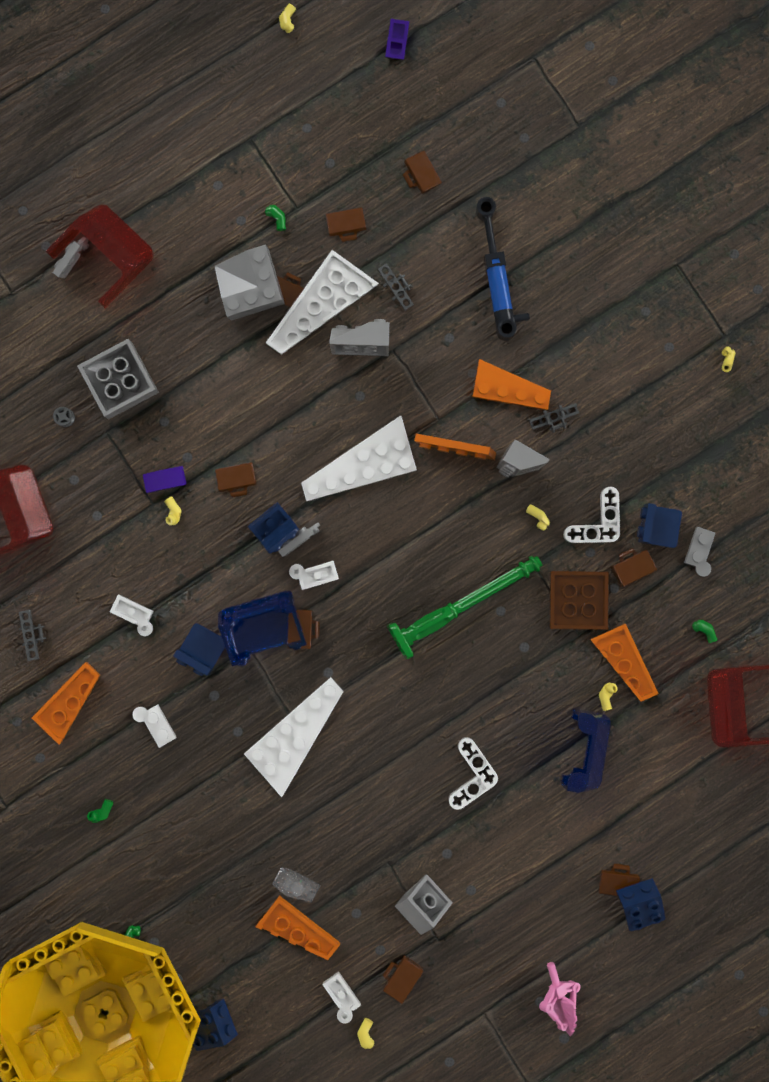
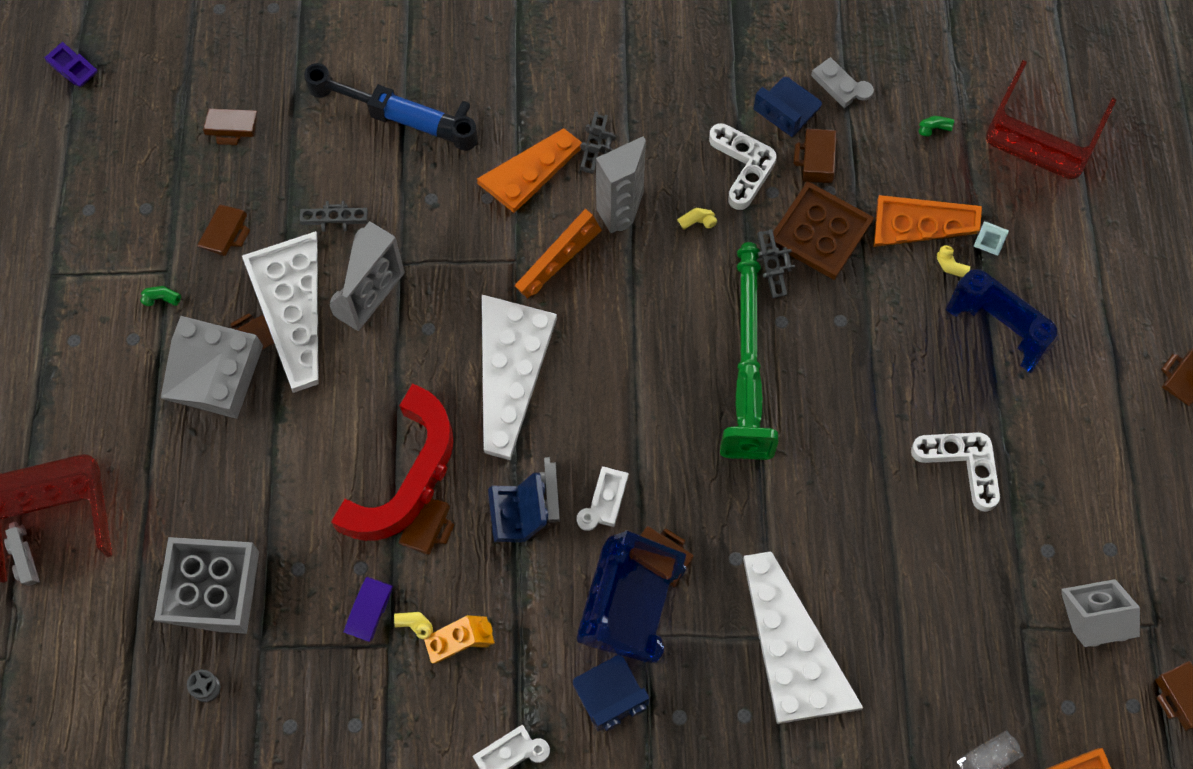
camera: 55 degrees left, 20 degrees down
(179, 543) = (458, 636): none -> light orange bracket
(268, 458) = (418, 486): none -> red arch
(541, 582) = (778, 270): none -> dark grey piece
(640, 711) = (991, 238): none -> light aqua brick

